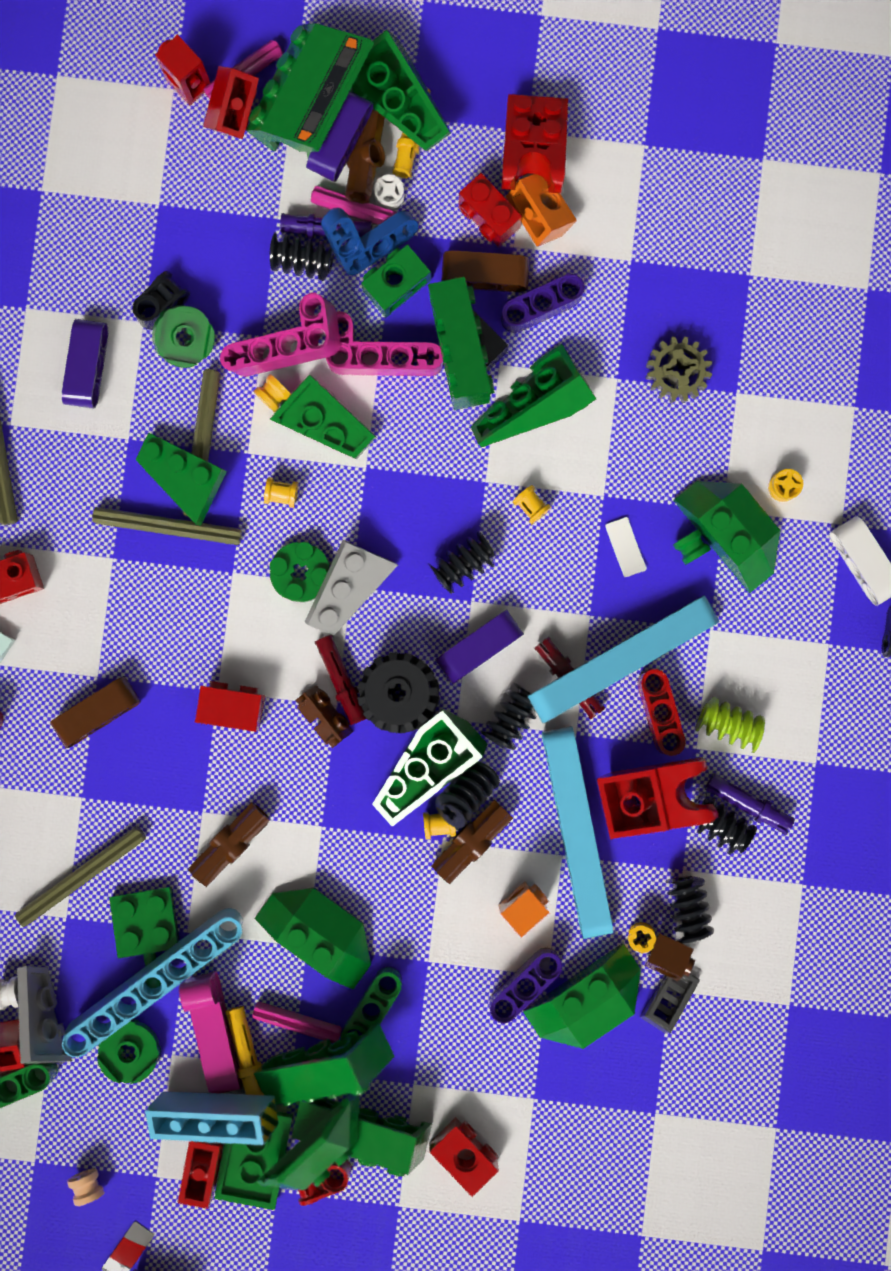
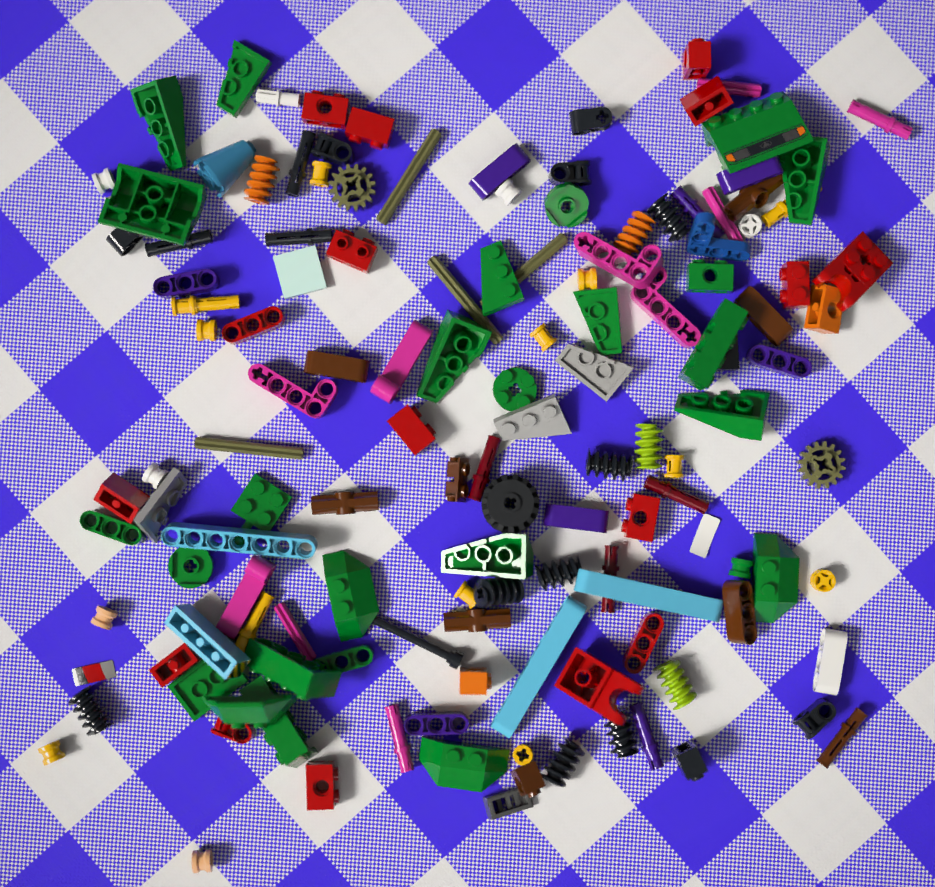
camera: 40 degrees right, 0 degrees up
(67, 778) = (289, 388): none -> dark pink beam
(112, 375) = (508, 191): none -> white wheel
(127, 232) = (585, 120): none -> black piece
(159, 648) = (402, 362): none -> dark pink beam
(201, 587) = (453, 351): none -> green wedge
(277, 302) = (633, 233): none -> orange piece
(362, 479) = (594, 370): none -> light grey wing
(481, 903) = (453, 658): none -> black piece
(487, 507) = (648, 446): none -> lime piece
(501, 1034) = (401, 745): none -> dark pink pin
(544, 568) = (649, 507): none -> red brick
(558, 531) = (669, 491): none -> dark red pin
(731, 592) = (739, 612): none -> reddish brown beam
(817, 790) = (689, 761): none -> black brick

